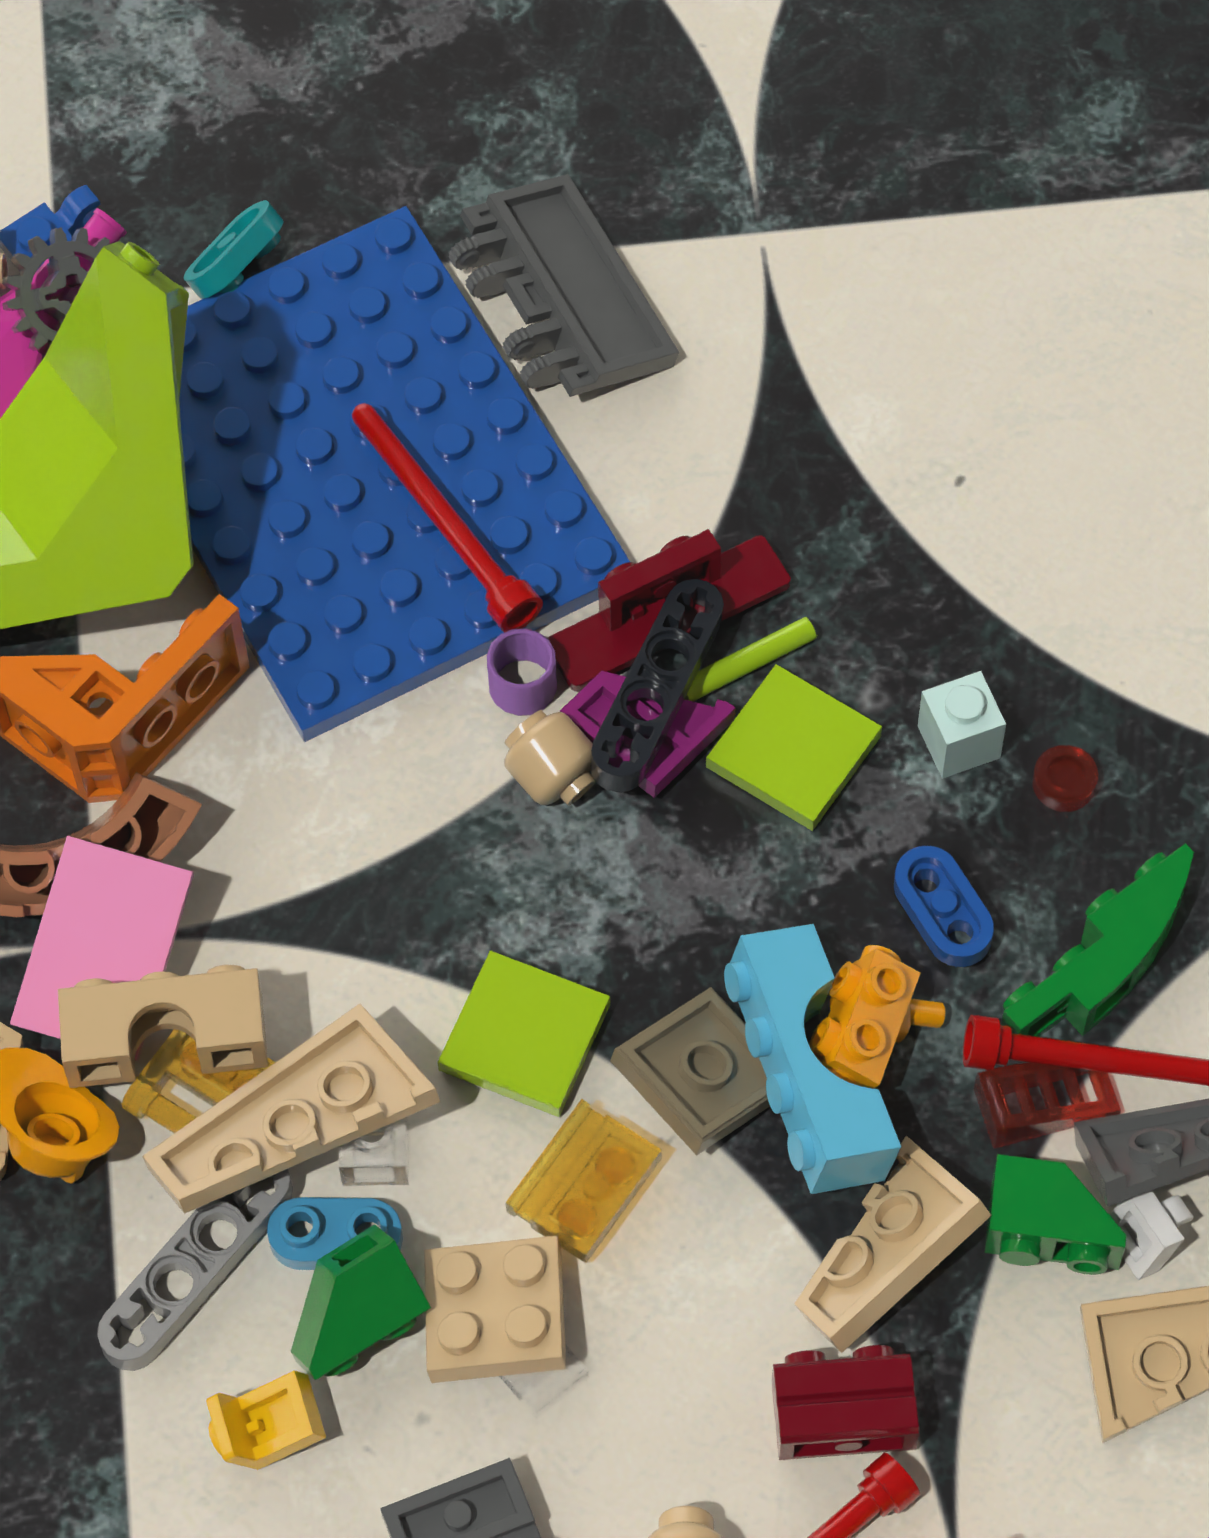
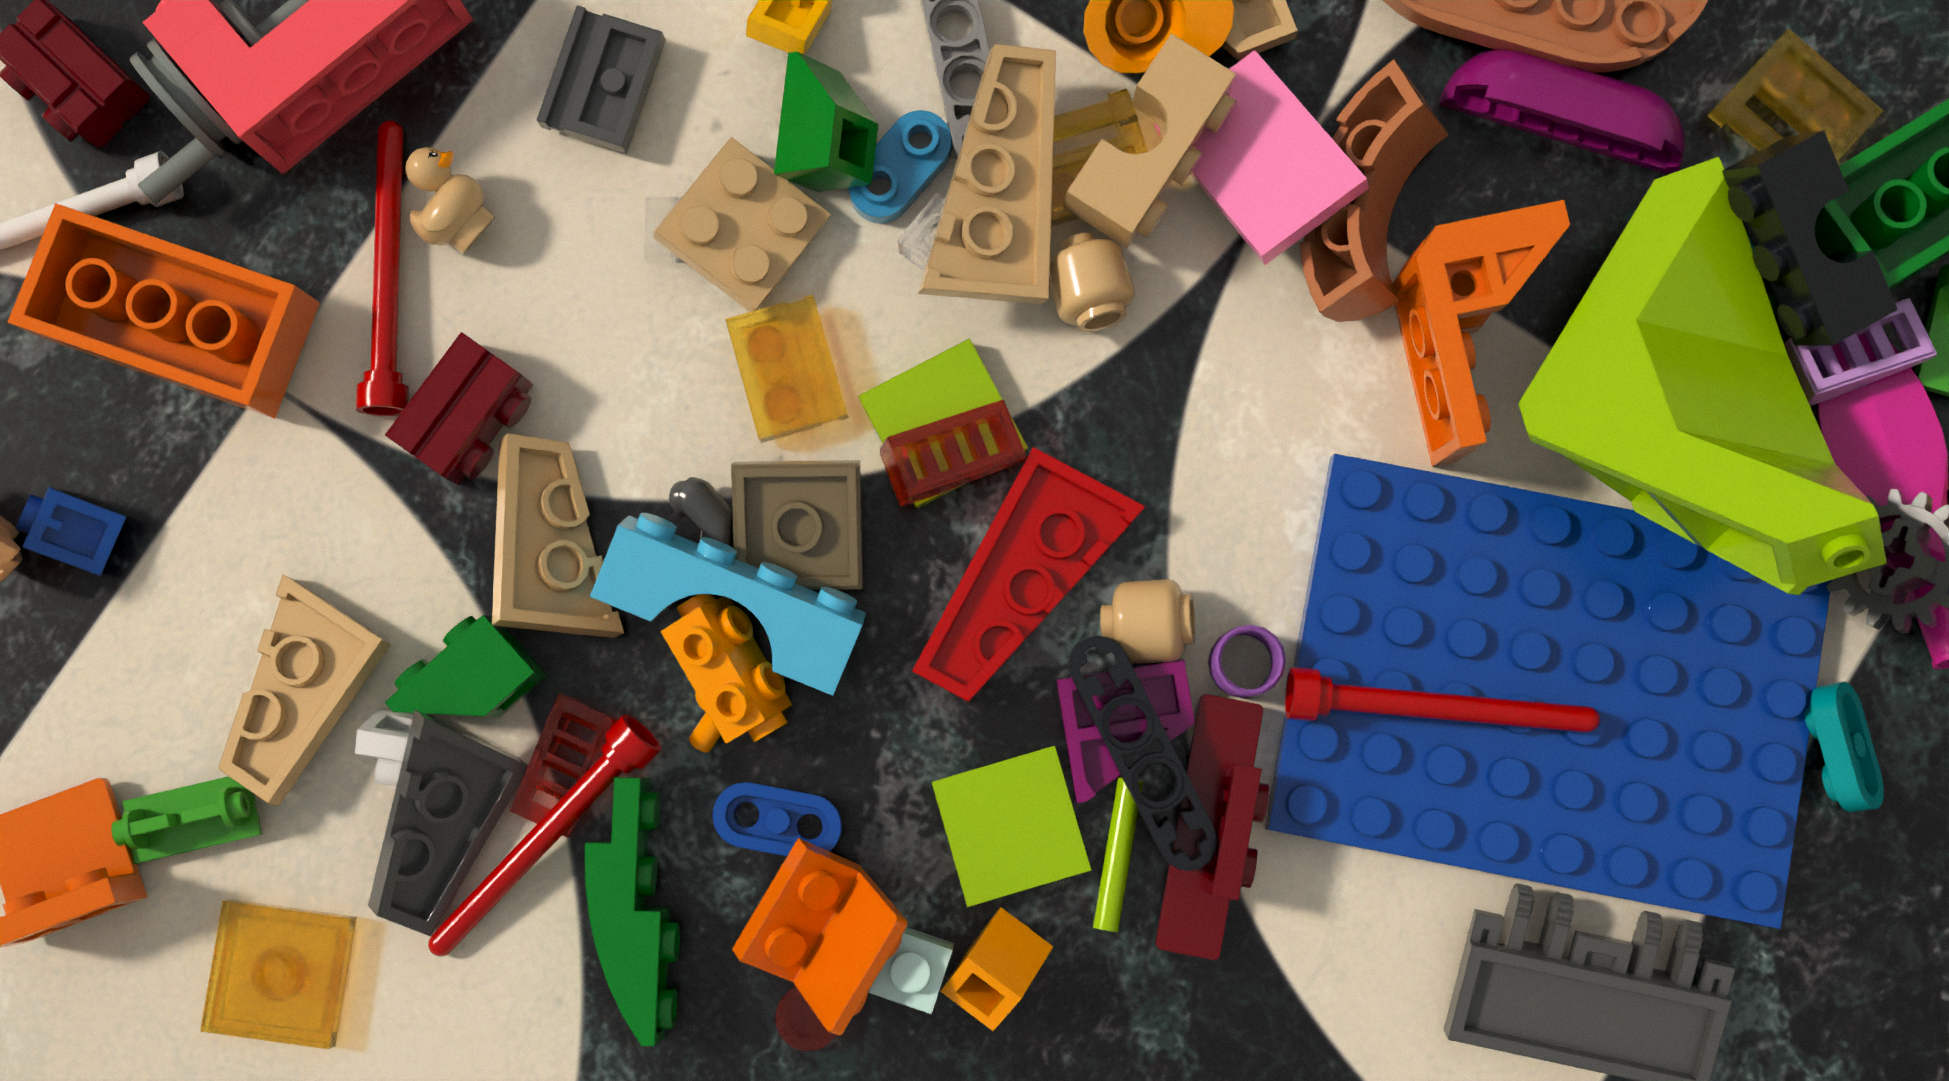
camera: 130 degrees right, 20 degrees up
(312, 996) = (1090, 282): none -> tan head
(570, 886) = (1028, 561): none -> red wing
(580, 1016) = (902, 474): none -> clear red slope
(754, 1152) = (704, 507): none -> dark grey arm
(905, 660) = (1006, 959): none -> light orange brick
(992, 786) = (823, 931): none -> orange bracket

